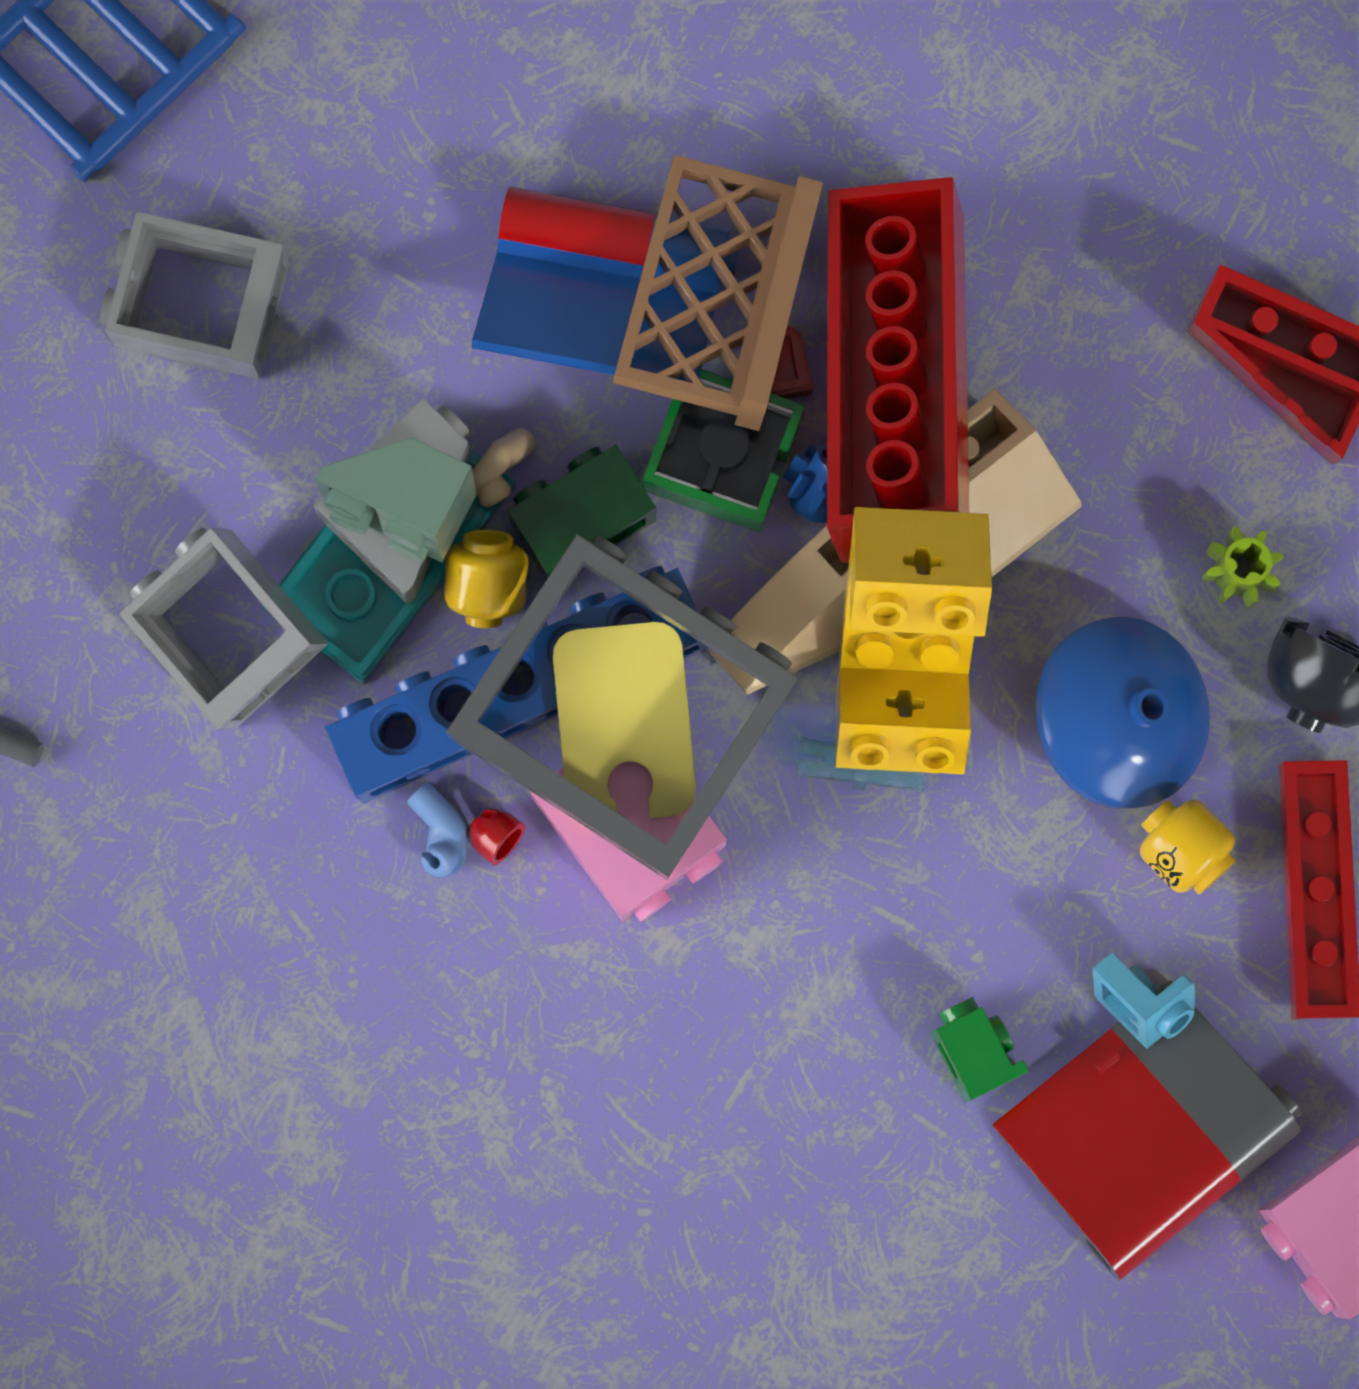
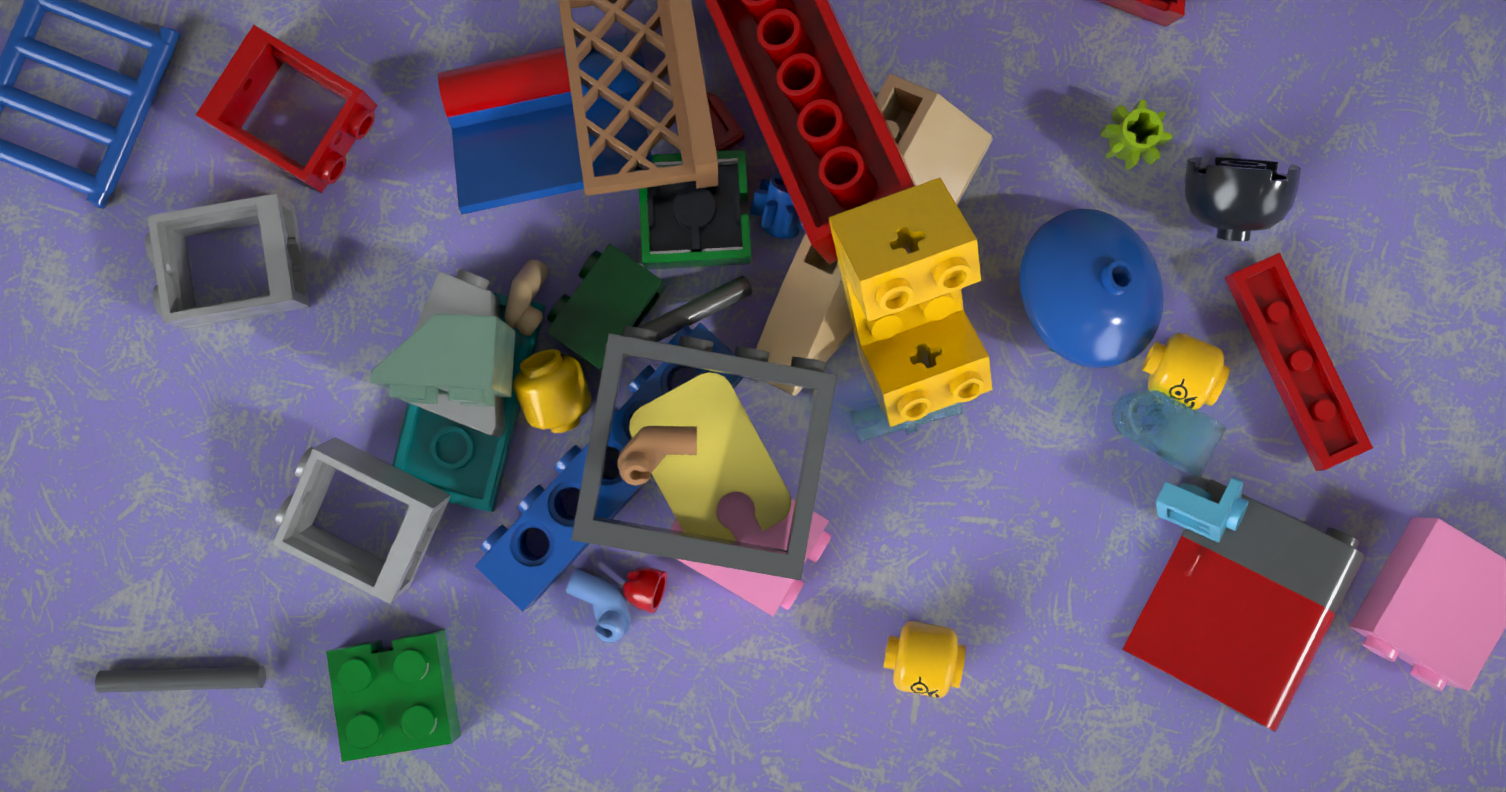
camera: 20 degrees left, 5 degrees up
(174, 833) = (393, 695): none -> green piece
(299, 110) = (245, 83): none -> red window
(571, 669) = (650, 447): none -> medium nougat arm
(685, 555) = (699, 308): none -> dark grey bar
(768, 1037) = (925, 659): none -> yellow head
(976, 1049) = (1089, 600): green brick -> none
(1151, 914) = (1175, 431): none -> clear light blue piece

